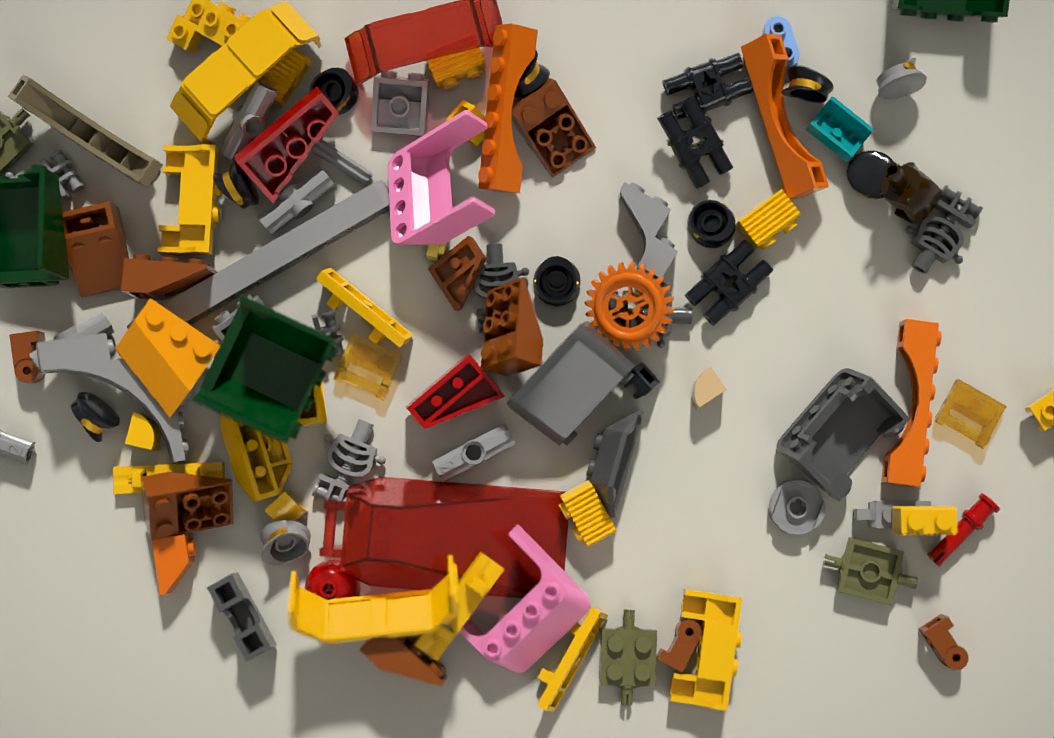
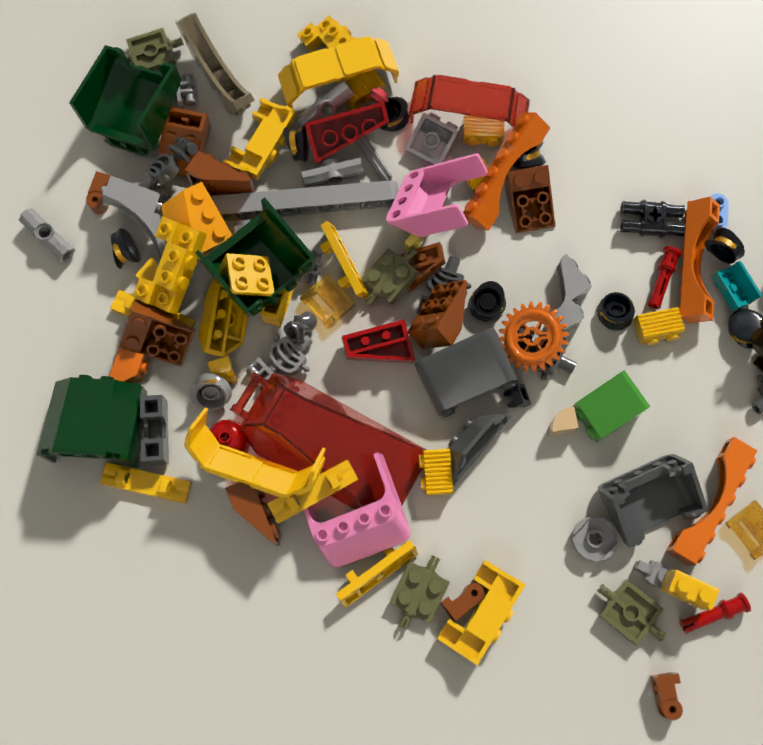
camera: 20 degrees right, 10 degrees down
(93, 296) = (165, 166): none -> dark grey torso
(167, 640) = (93, 420): none -> dark green windscreen
(171, 417) = (174, 268): none -> yellow bracket
(261, 678) = (146, 483): none -> yellow hinge
(265, 393) = (248, 274): none -> yellow bracket
(308, 79) = (378, 95): none -> coral plate
(351, 412) = (299, 326): none -> dark grey animal
(428, 303) = (390, 276): none -> olive plate
(457, 460) = (360, 392): light grey piece -> none
(708, 145) = (620, 258): black pin -> none
(728, 268) = (610, 366): black pin -> none
(749, 142) = (666, 269): none -> red pin
(752, 348) = (610, 406): none -> bright green slope

